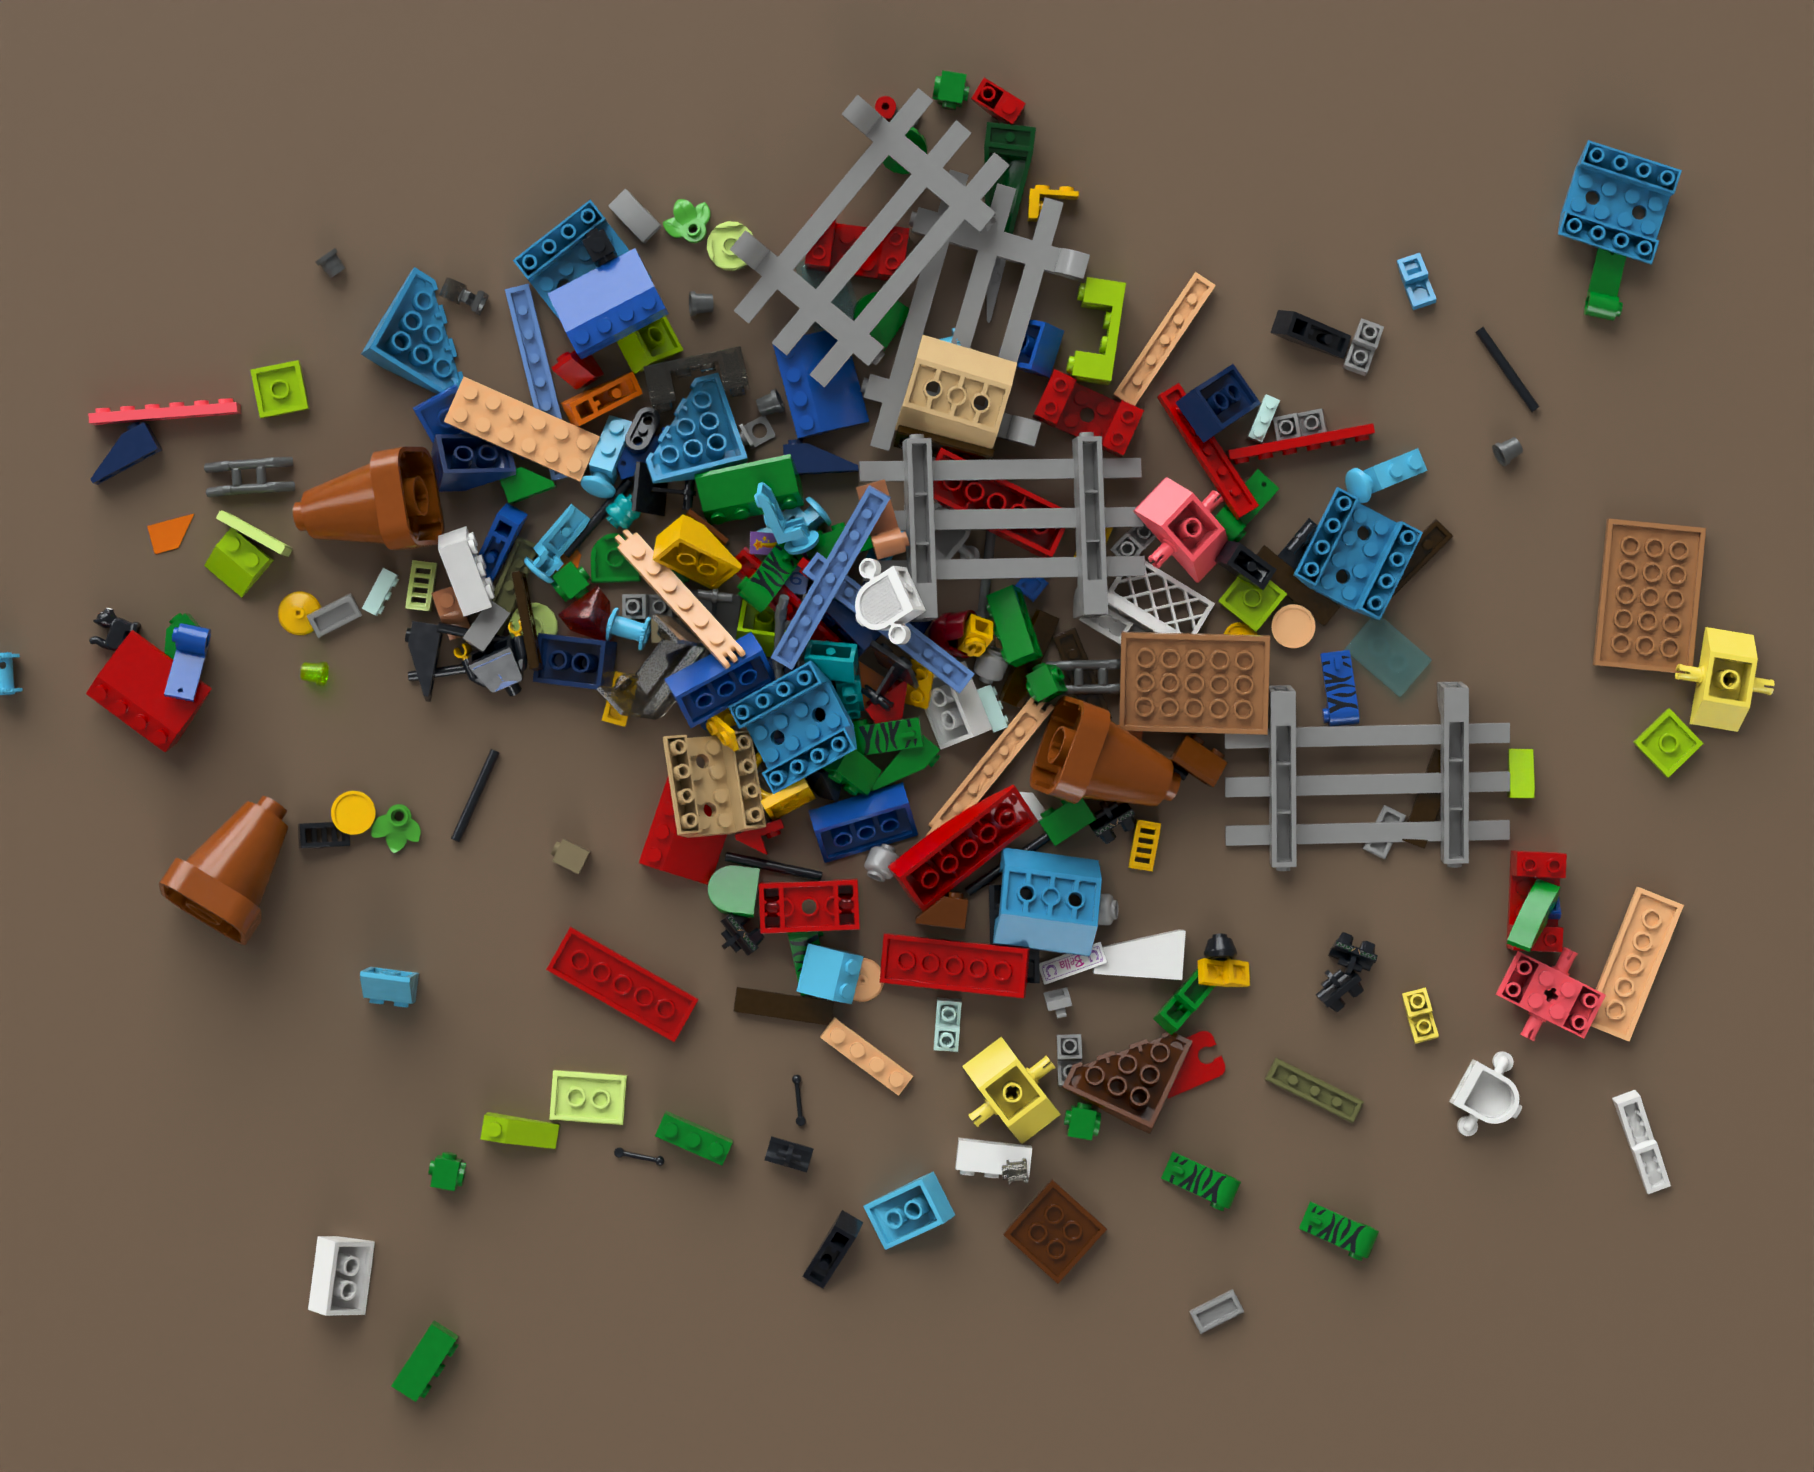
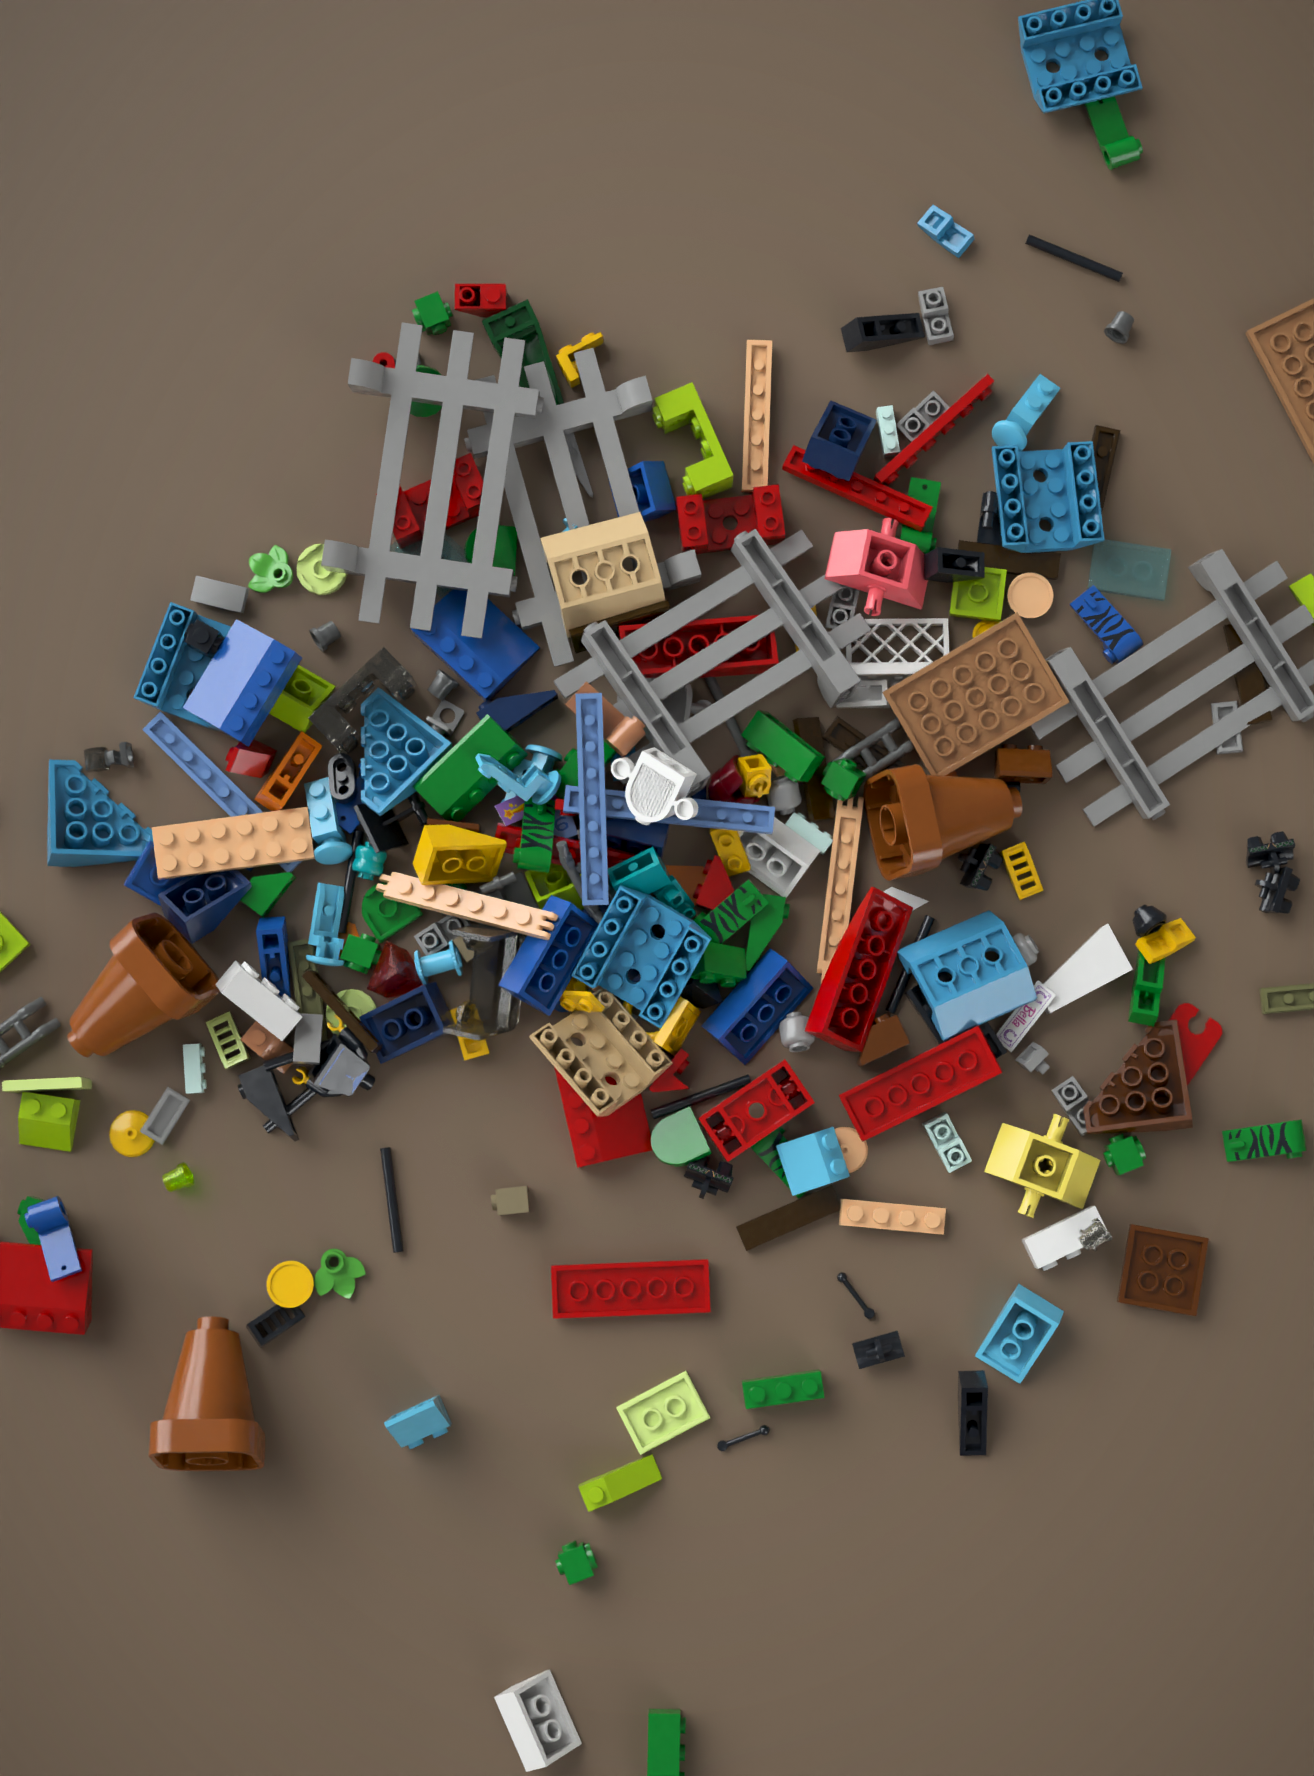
camera: 30 degrees left, 5 degrees down
(897, 668) = (701, 846): black plate -> none
(1032, 587) = (776, 703): blue tile -> none
(1065, 820) = (937, 891): green brick -> none

